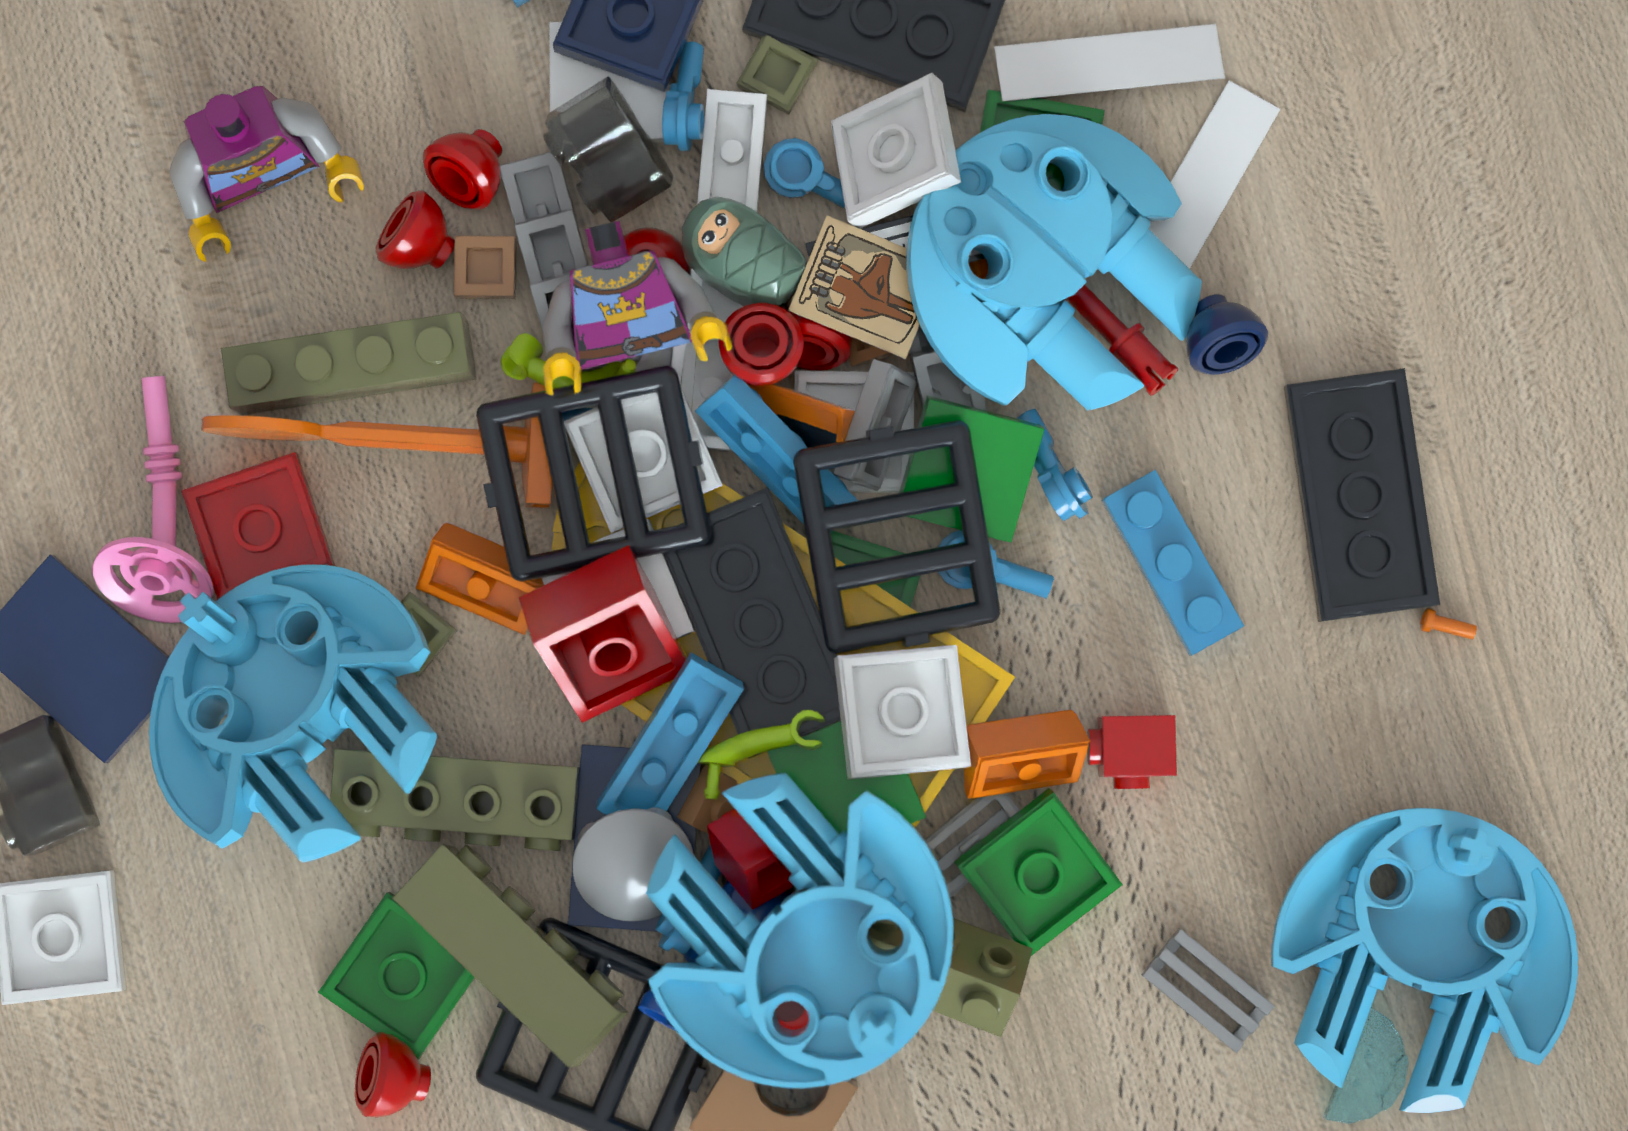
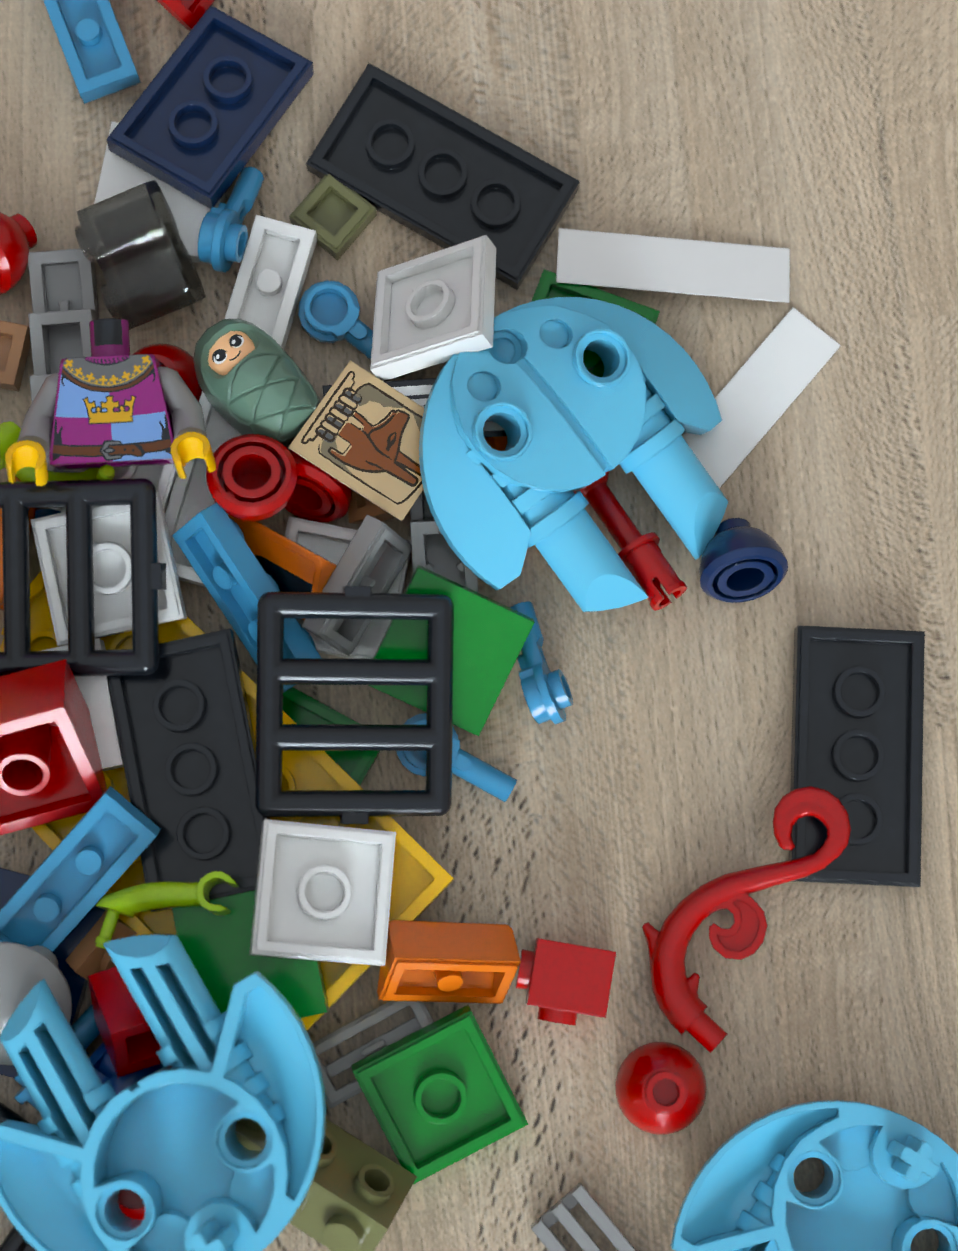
camera: 10 degrees right, 5 degrees down
(1172, 563) = (645, 790): dark azure plate -> none
(1220, 703) = (667, 949): none -> red plant
(1236, 830) = (660, 1088): none -> red brick
(1432, 621) = (907, 902): orange piece -> none

